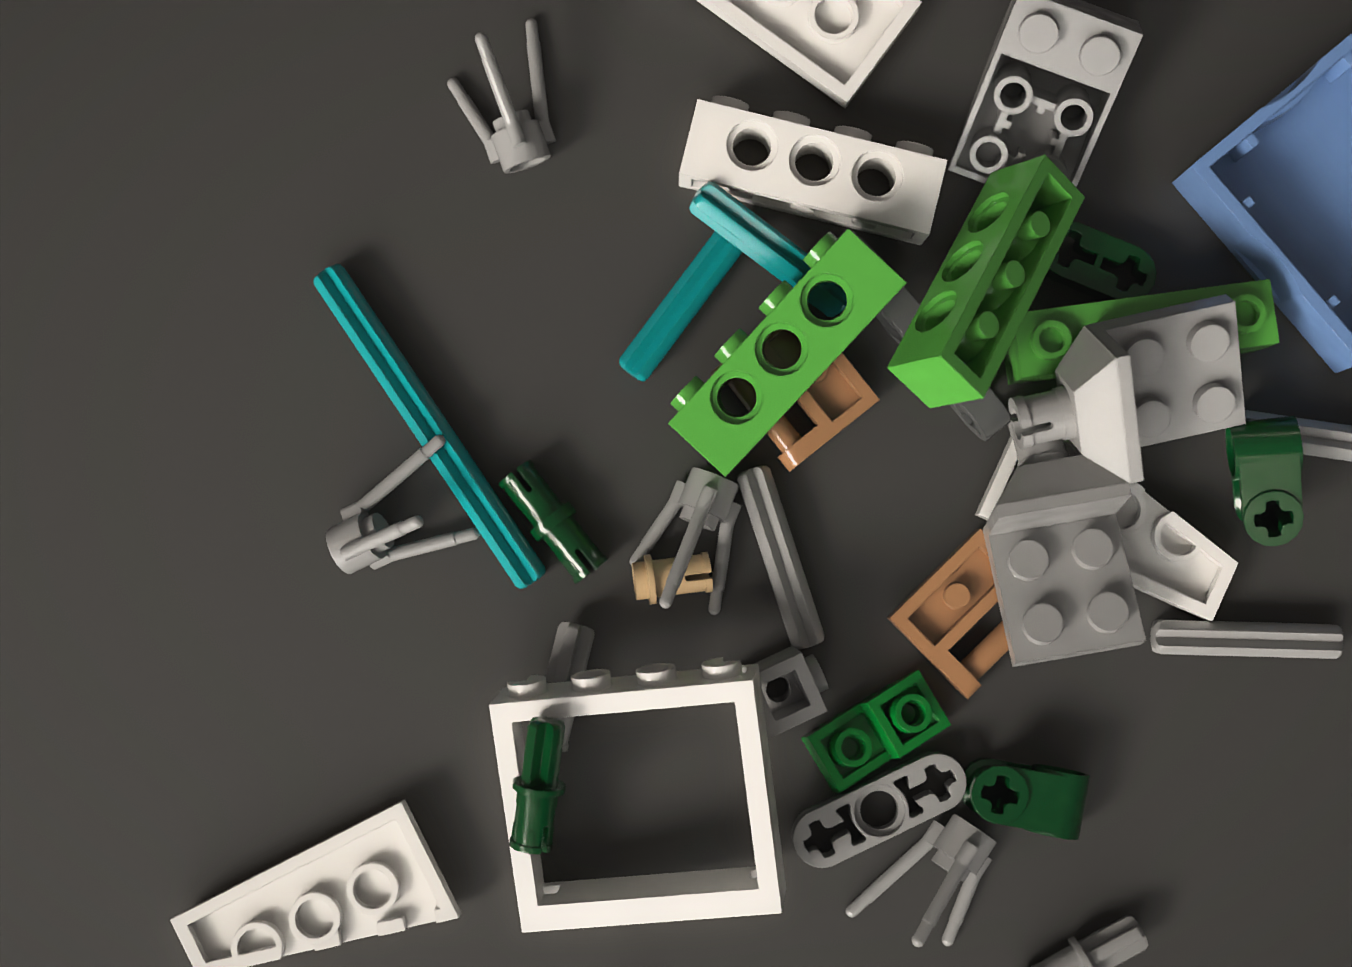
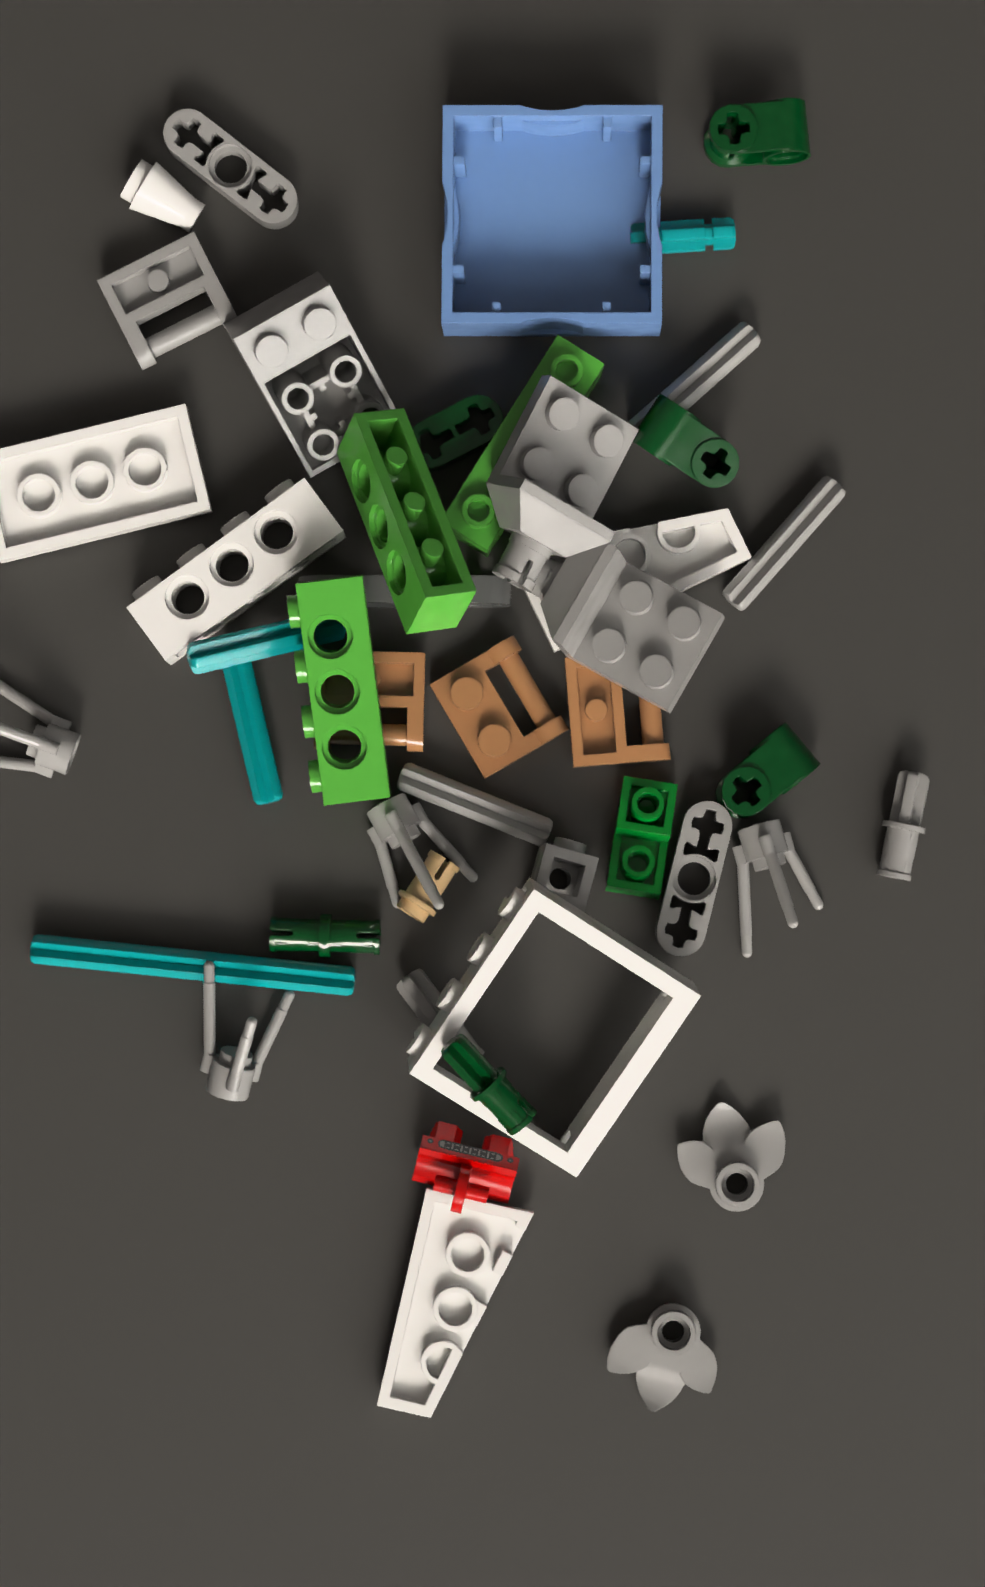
camera: 50 degrees left, 0 degrees up
(445, 824) = (465, 1169): none -> red hips
(864, 499) = (483, 717): none -> medium nougat plate

